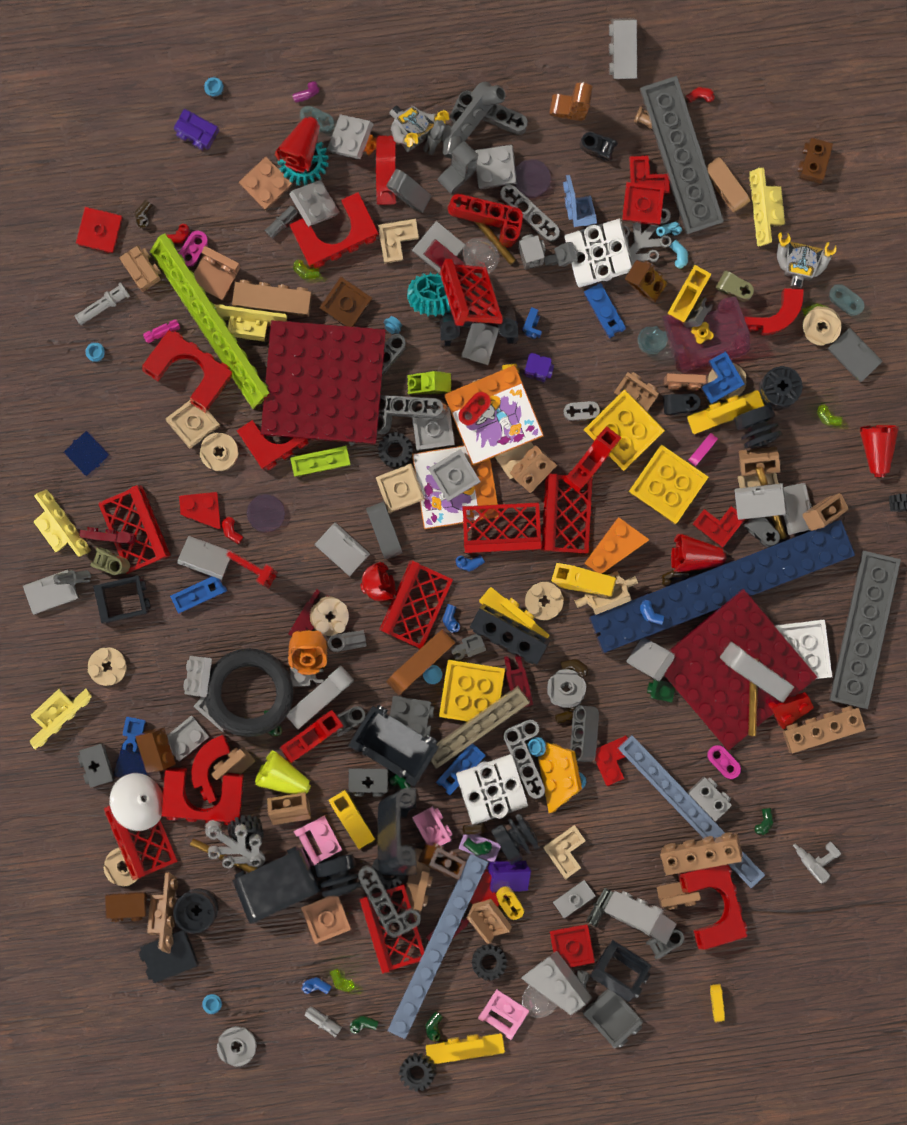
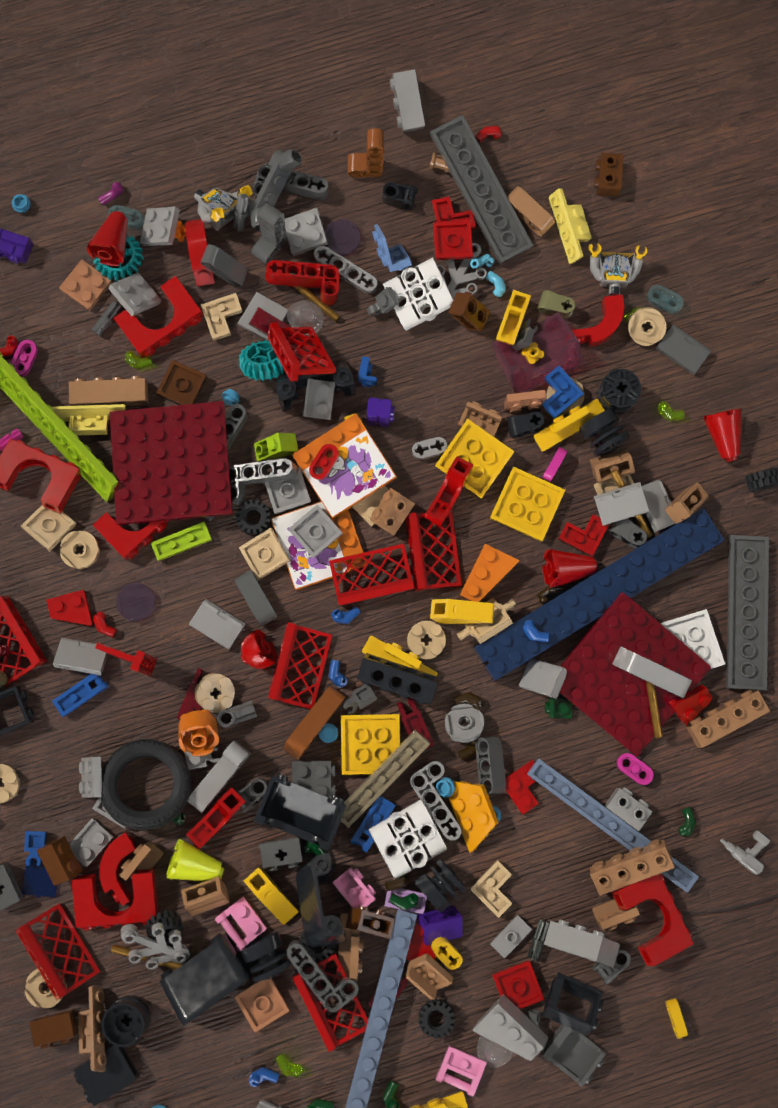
camera: 10 degrees left, 5 degrees down
(127, 802) = (39, 925): white dish -> none
(216, 273) = (50, 376): nougat bracket -> none
(531, 251) = (353, 303): light grey brick -> none
(604, 310) = (434, 348): blue plate -> none
(652, 340) = (485, 368): clear light blue hair -> none

